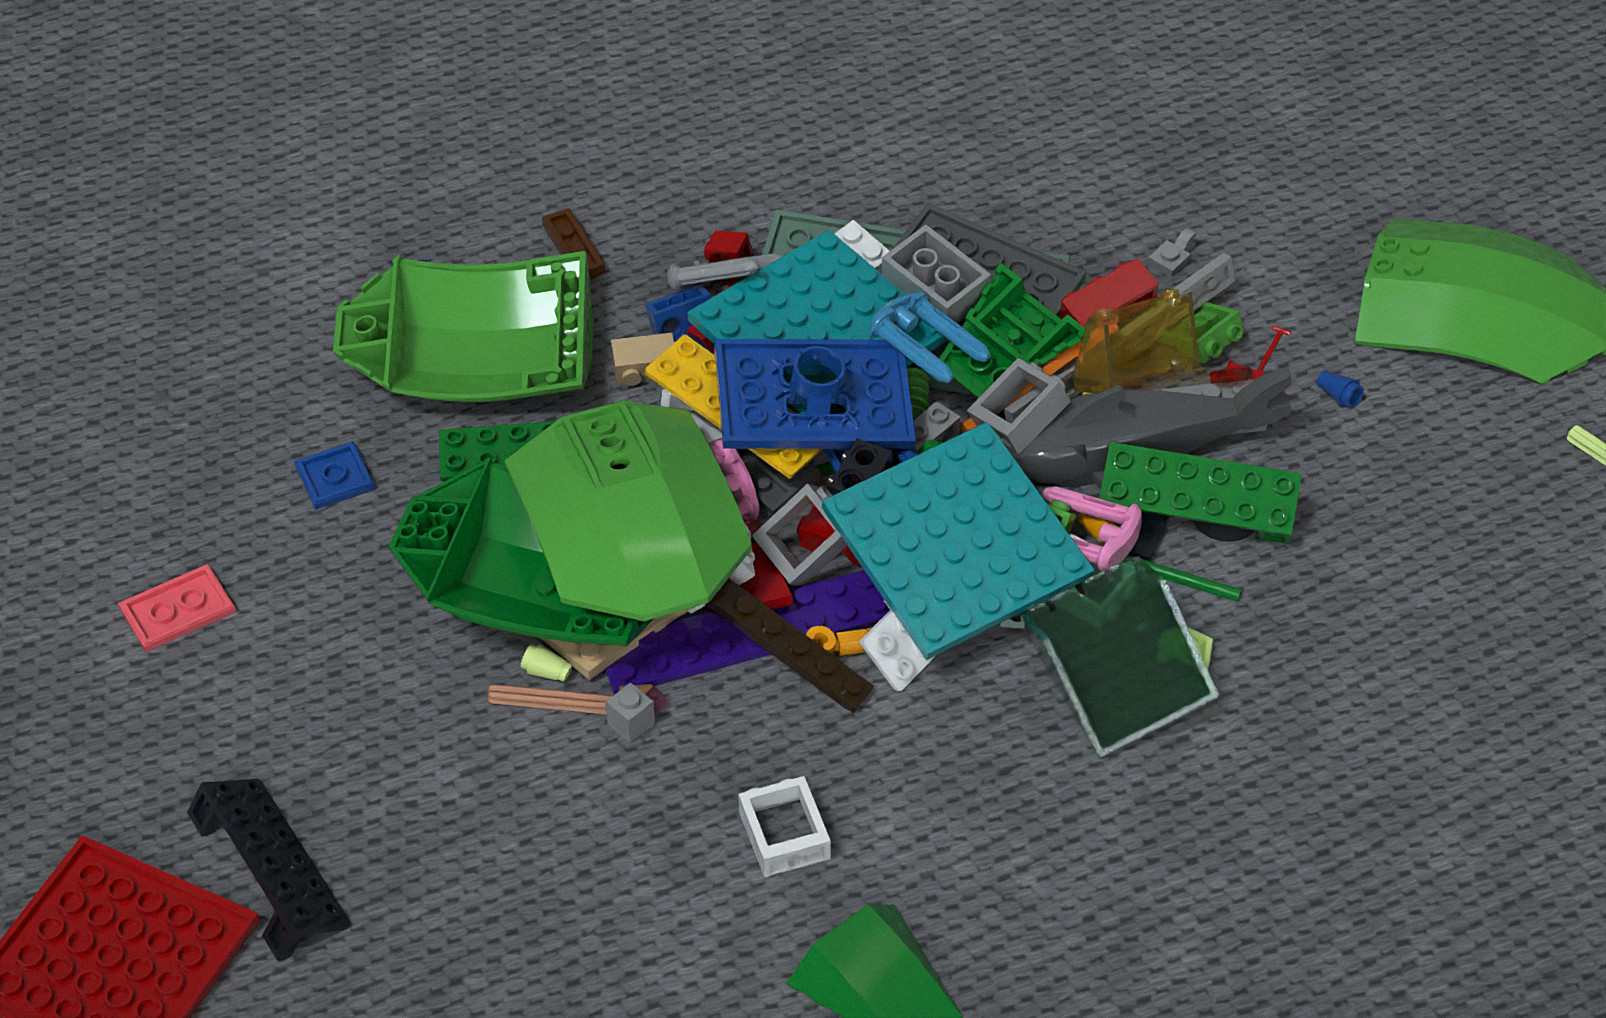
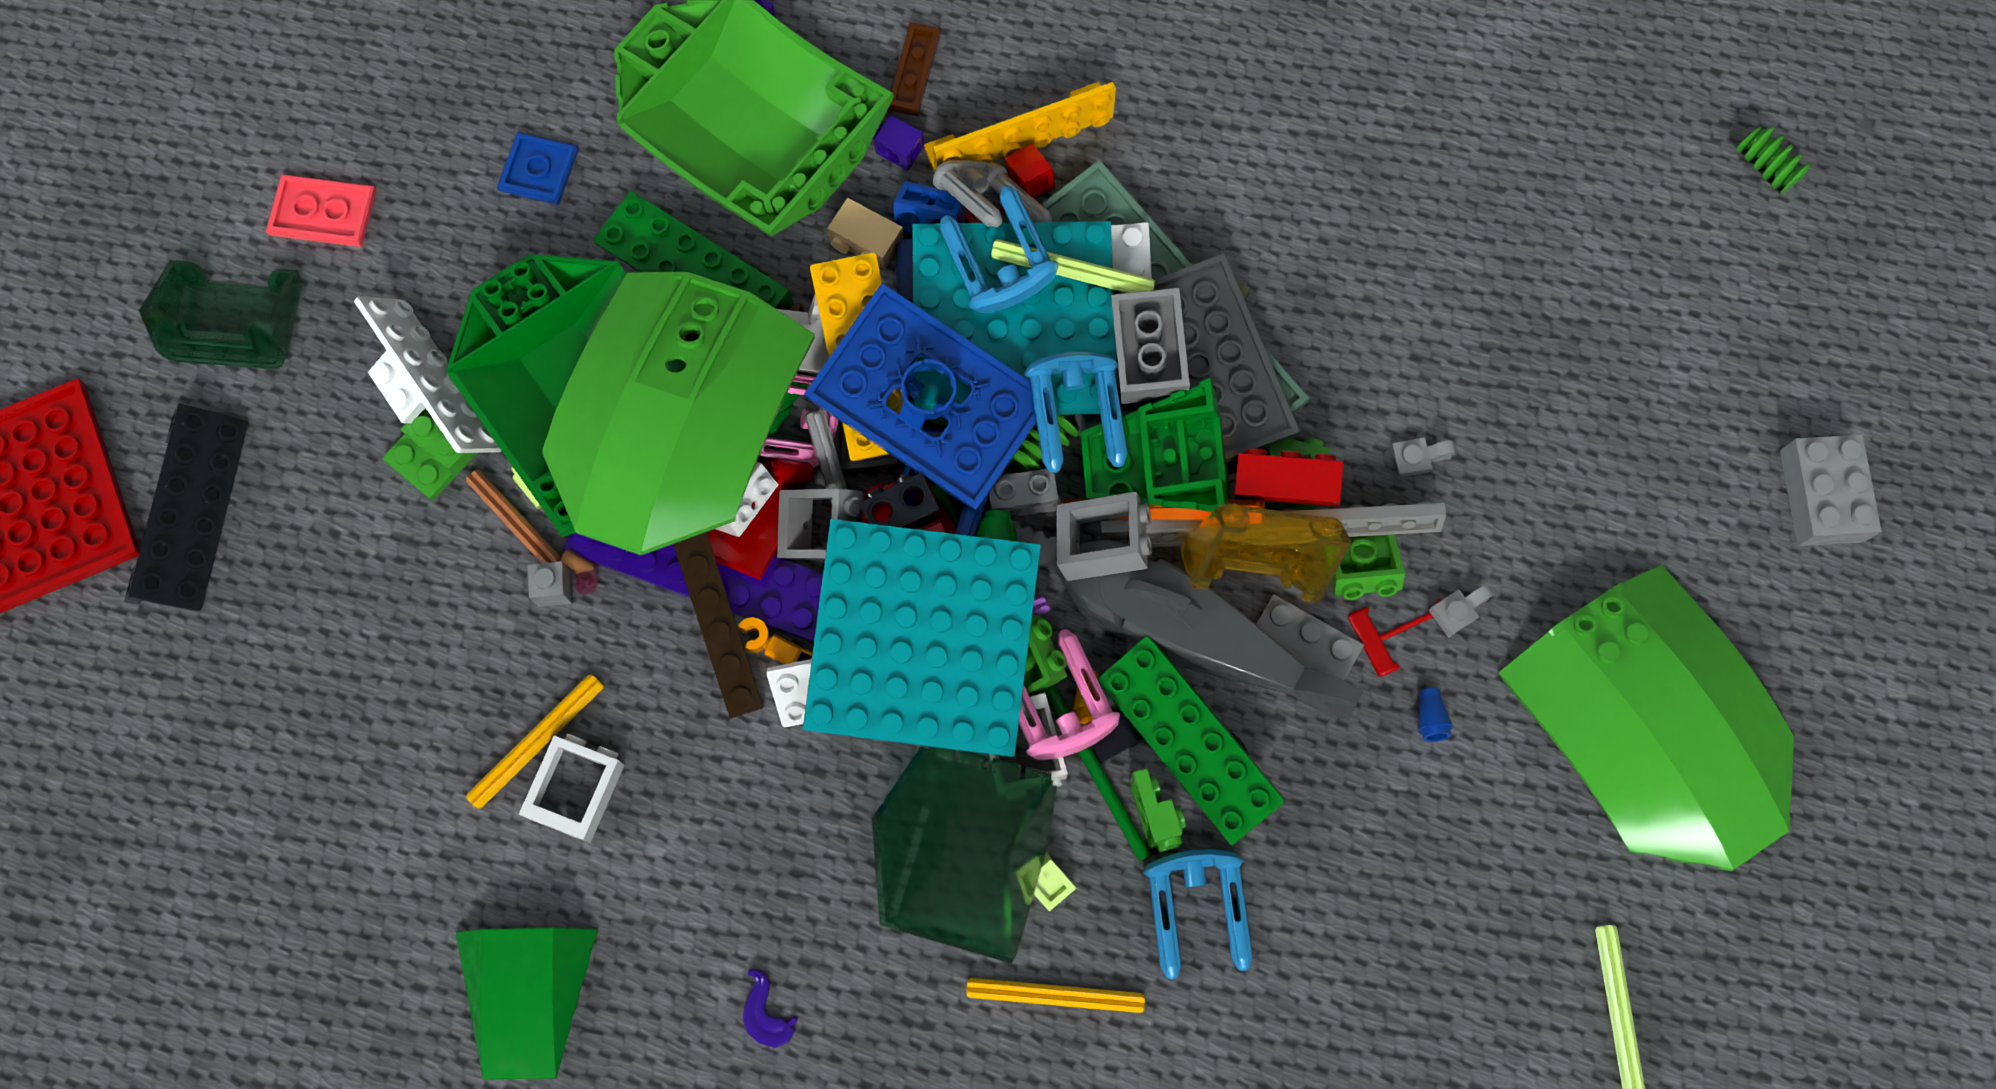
camera: 40 degrees right, 25 degrees up
(179, 722) = (219, 321): none -> clear green windscreen
(384, 653) = (416, 378): none -> white bracket
(439, 697) = (426, 456): none -> bright green plate
(610, 291) = (898, 142): none -> dark purple brick
(689, 241) = (1064, 118): none -> yellow bracket
(720, 823) = (534, 741): none -> yellow axle
(759, 493) = (825, 450): none -> light grey axle
(806, 295) = (1014, 287): none -> dark azure piece
(829, 266) = (1077, 269): none -> yellowish green axle
(1082, 877) = (758, 1024): none -> dark purple piece
(1219, 552) = (1159, 820): none -> bright green plate
(1230, 375) = (1343, 629): clear red tile -> none
(1264, 713) = (1055, 995): none -> yellow axle
(1277, 571) = (1193, 865): none -> dark azure piece
(1293, 323) = (1458, 611): none -> light grey plate
(1451, 111) = (1830, 490): none -> light grey brick

